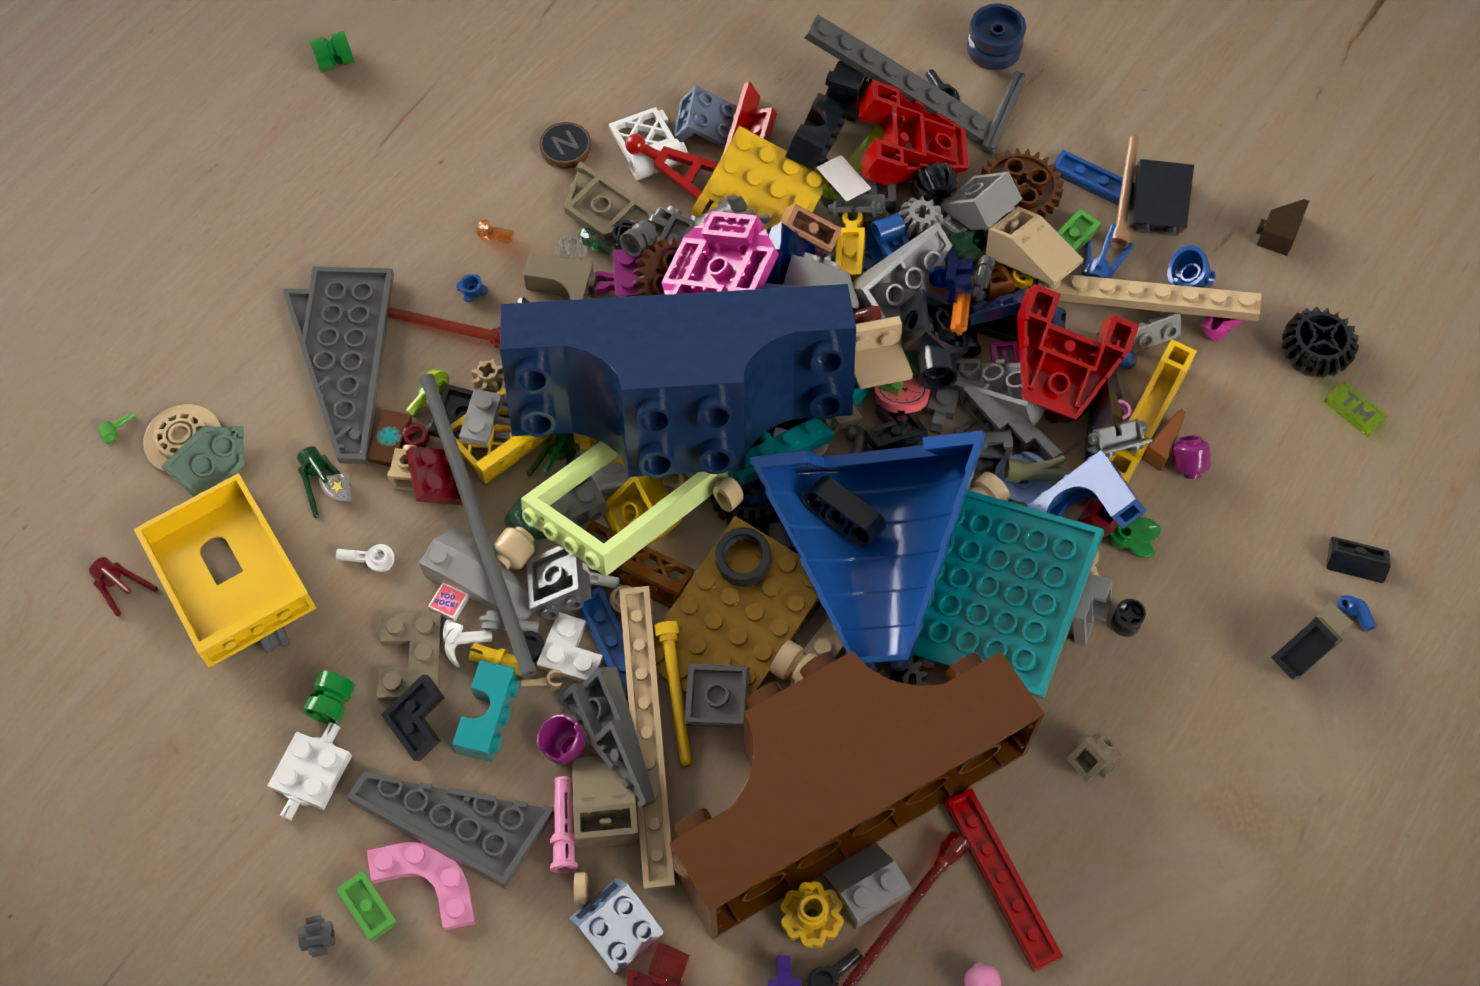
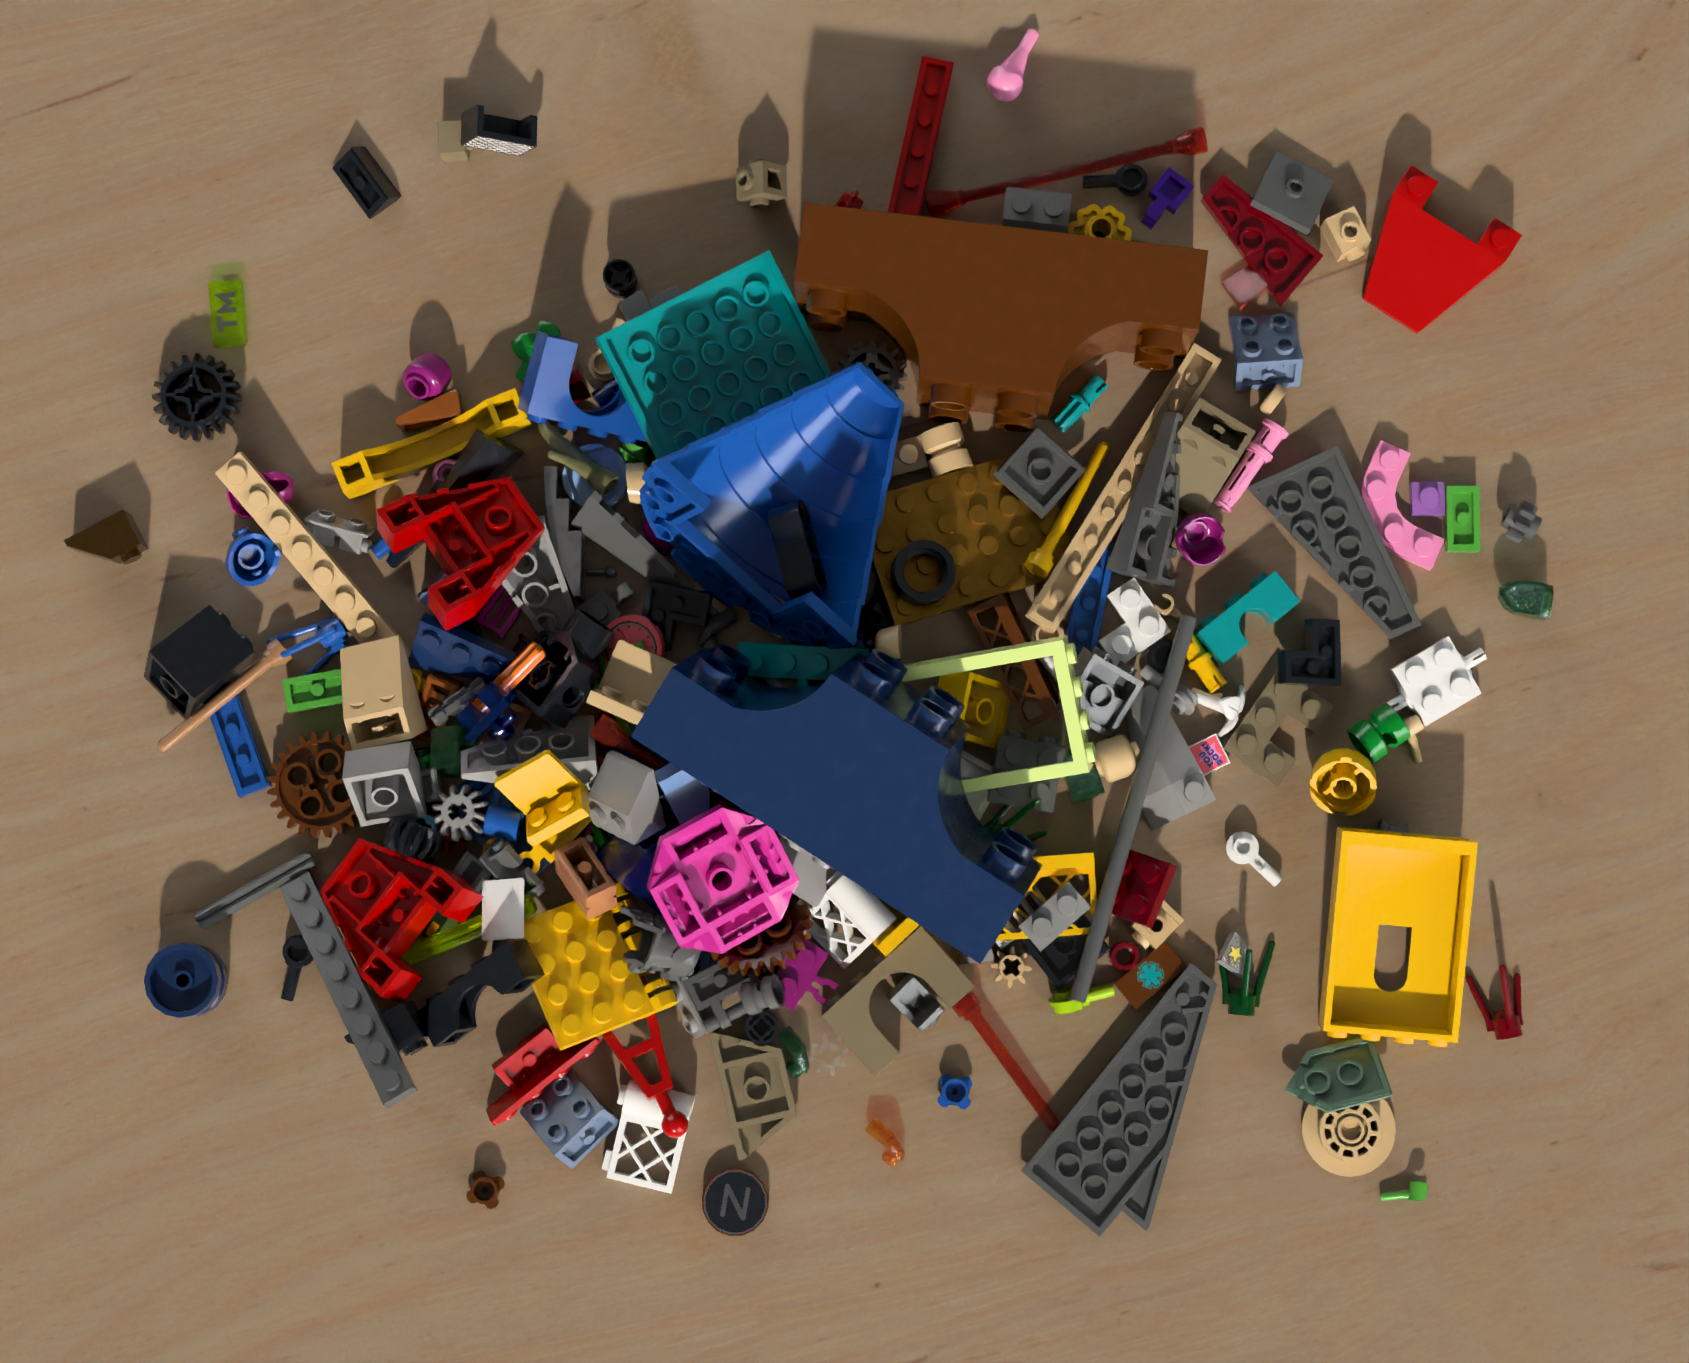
camera: 140 degrees left, 20 degrees up
(274, 878) = (1527, 599): none -> rock
(307, 726) = (1414, 726): none -> tan hand
(334, 645) = (1343, 781): none -> yellow cylinder
(406, 904) = (1427, 498): none -> medium lavender plate
(722, 56) = (476, 1193): none -> reddish brown plate
(728, 776) = (1079, 403): none -> teal axle
(865, 254) = (546, 795): none -> yellow bracket
(1017, 793) = (850, 200): none -> red plate
(1130, 438) = (501, 425): dark grey hinge -> none
(1358, 609) = (412, 137): blue arm -> none

